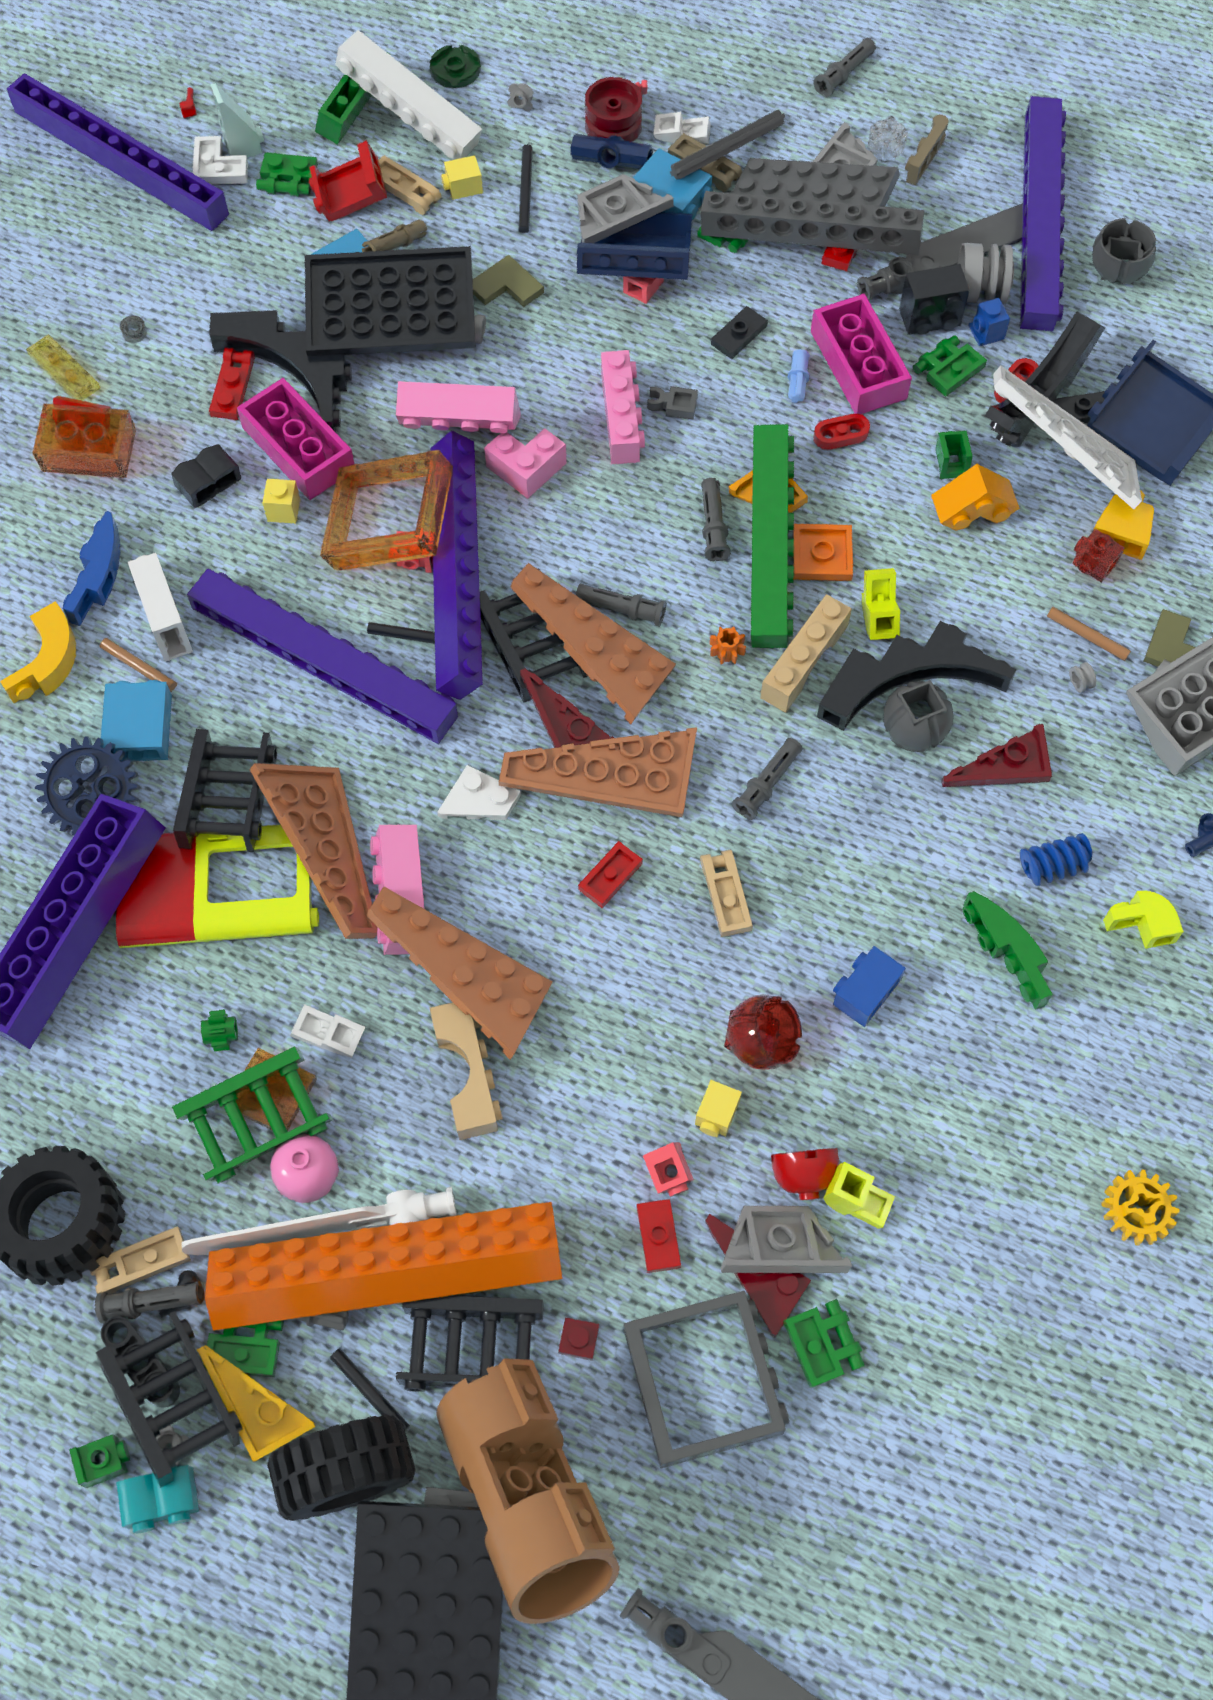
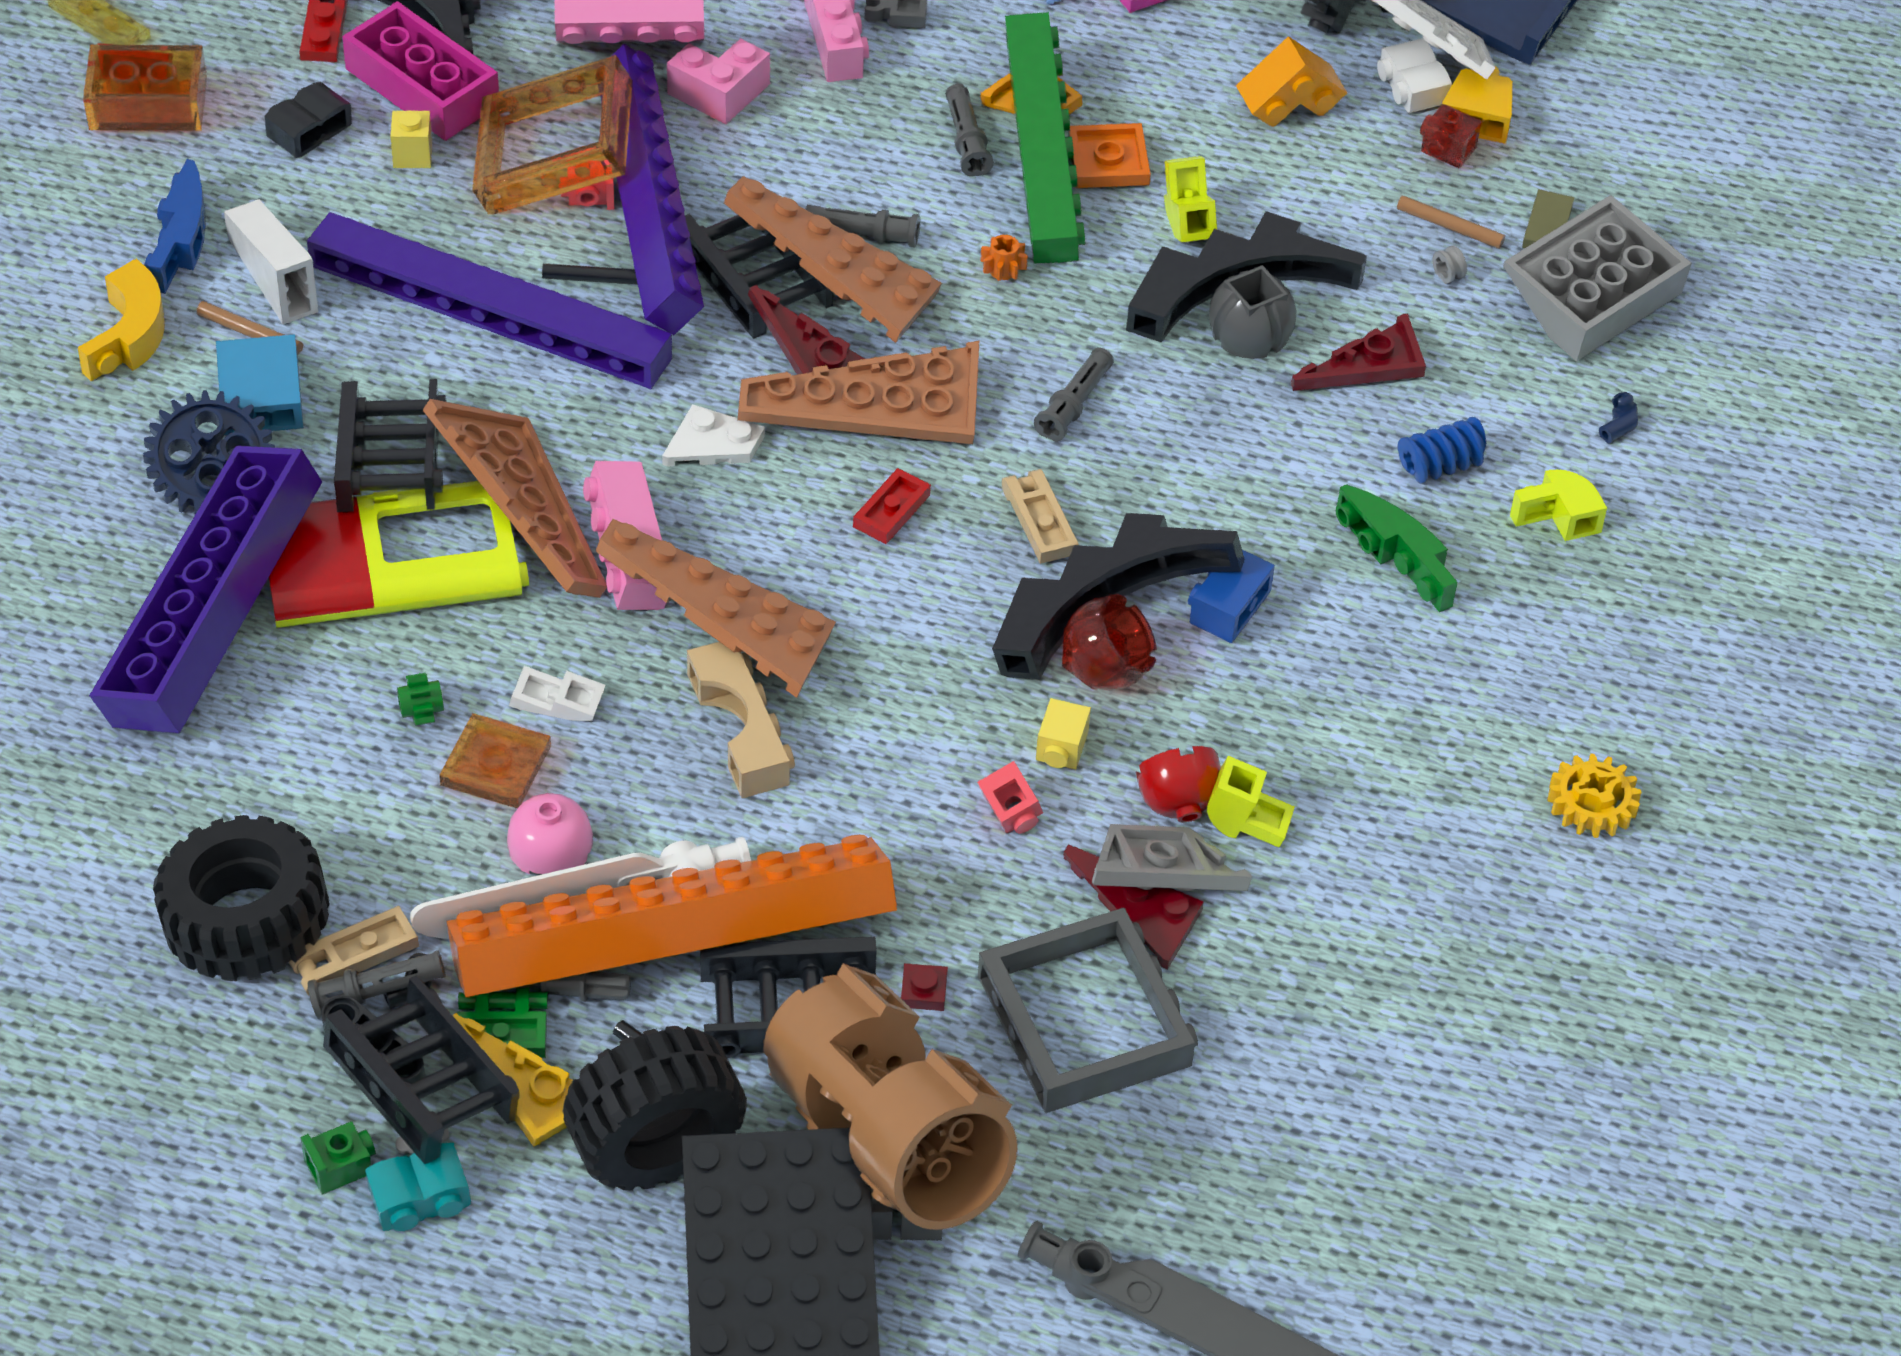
camera: 10 degrees left, 15 degrees down
(226, 1096) = (477, 736): green fence -> none
(658, 1236) = (1007, 874): red plate -> none
(760, 964) = (1141, 556): none -> black arch
(795, 664) = (1086, 279): tan arch -> none
(815, 1348) = (1219, 969): green plate -> none
(840, 431) = (1114, 28): red plate -> none
(951, 444) = (1255, 33): green window -> none
(1075, 493) = (1414, 75): none -> white brick

